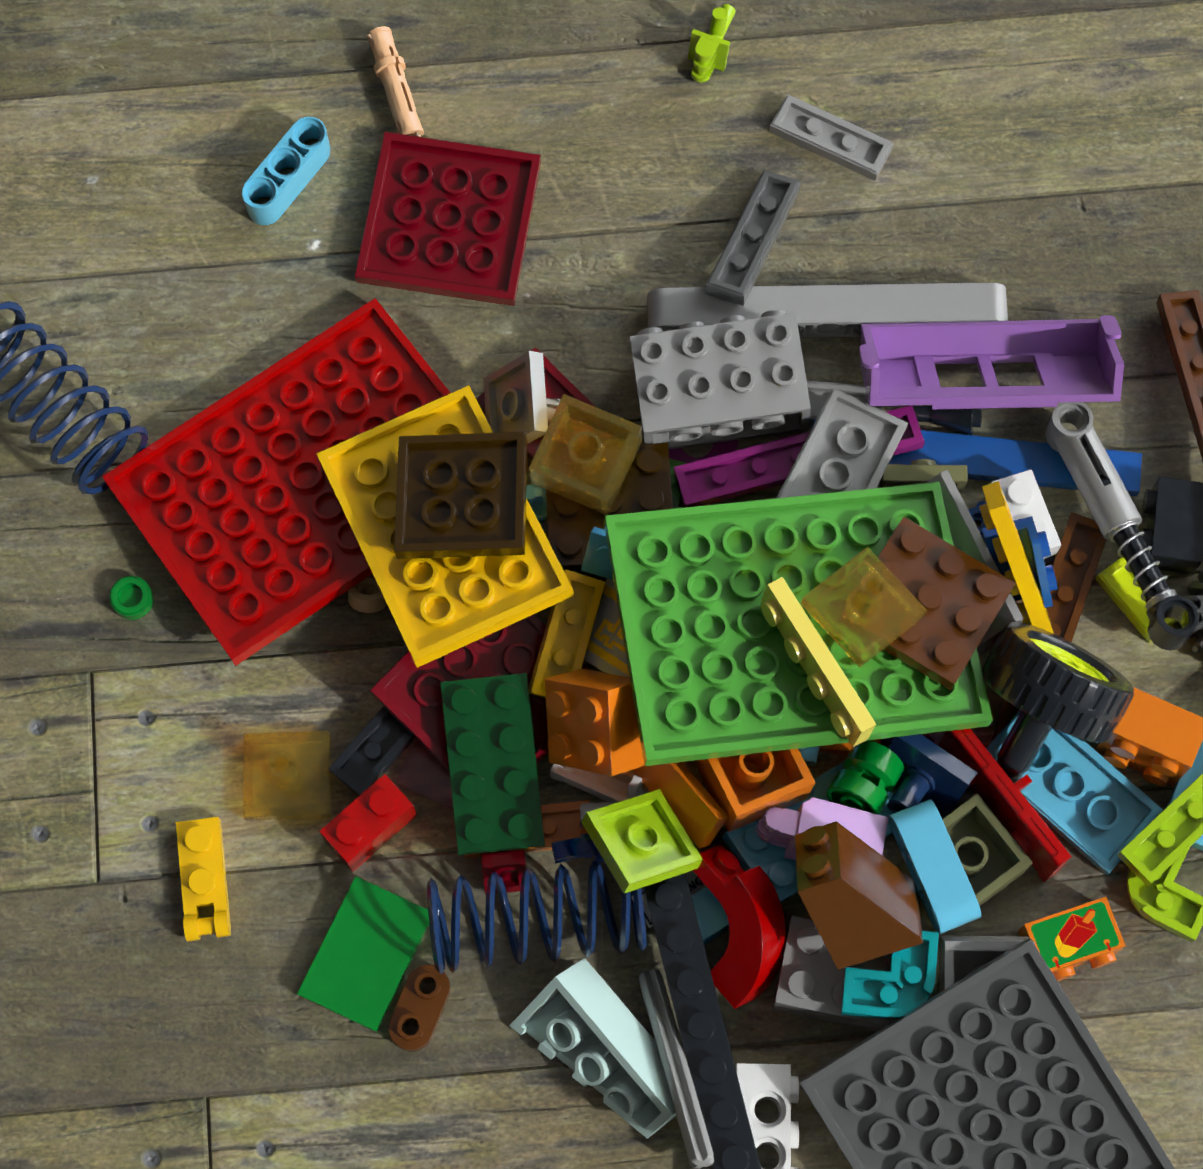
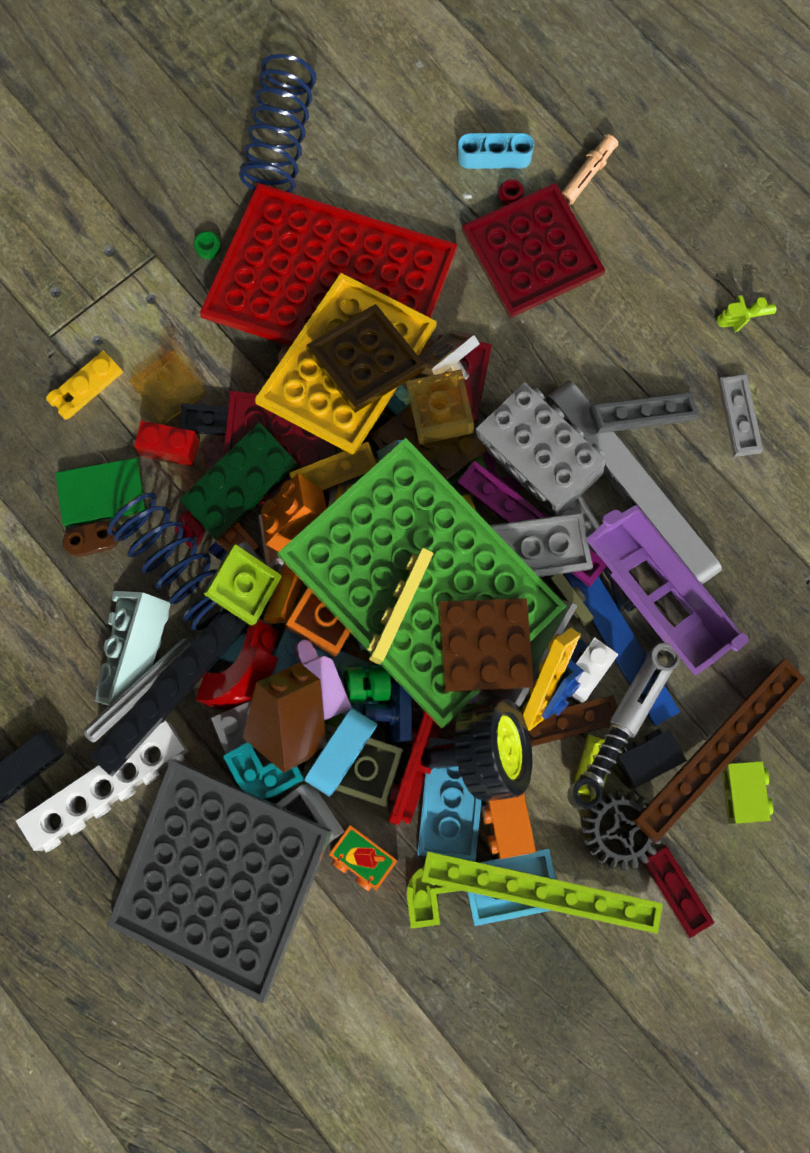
camera: 55 degrees right, 5 degrees up
(349, 182) = (510, 186): none -> dark red plate
(863, 607) = (451, 609): clear yellow tile -> none

